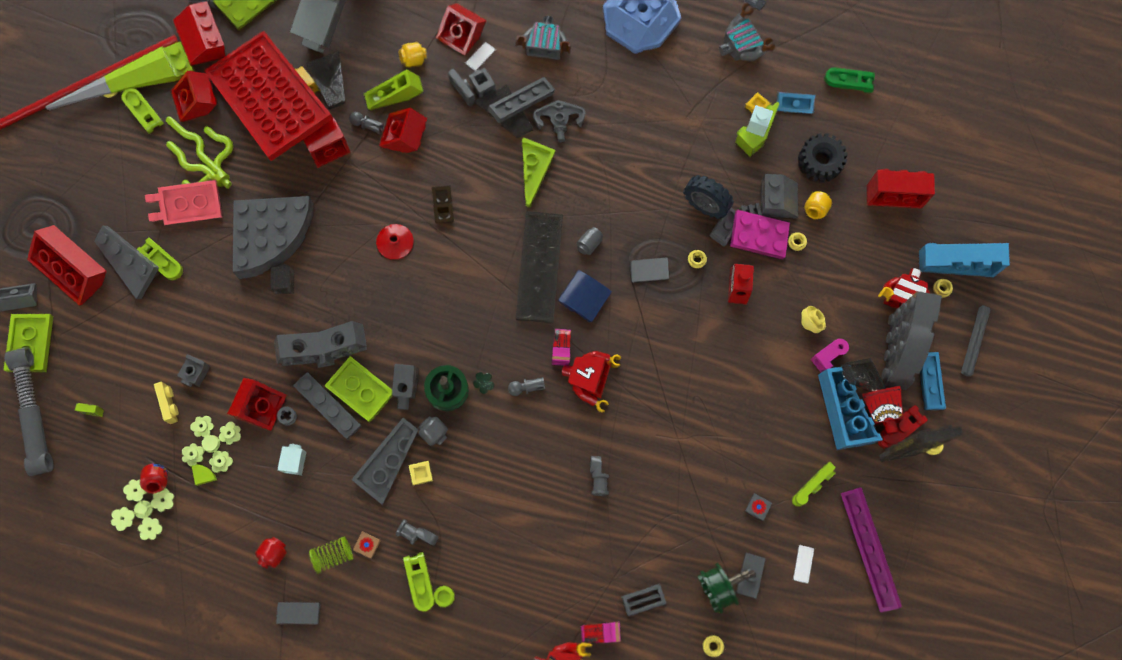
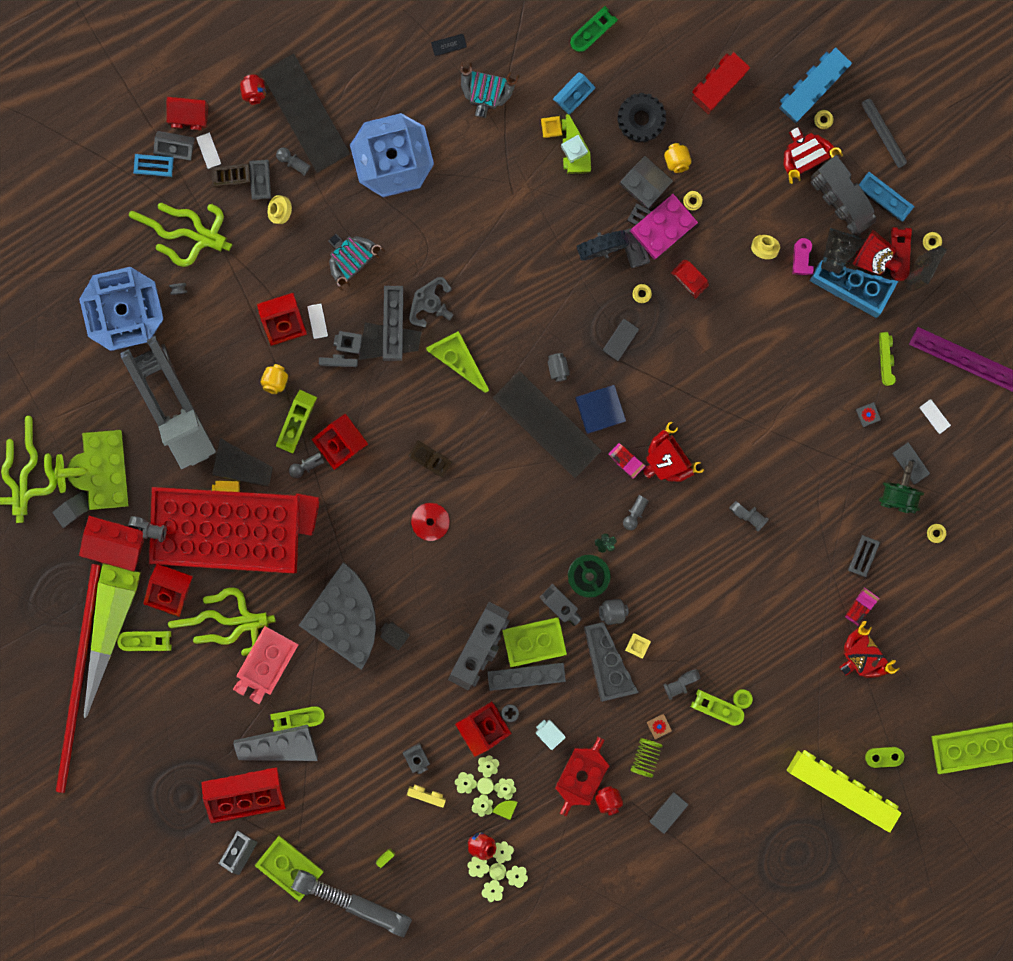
camera: 45 degrees left, 15 degrees up
(227, 47) = (149, 530): none -> dark grey connector
(259, 512) = (582, 792): none -> red plate

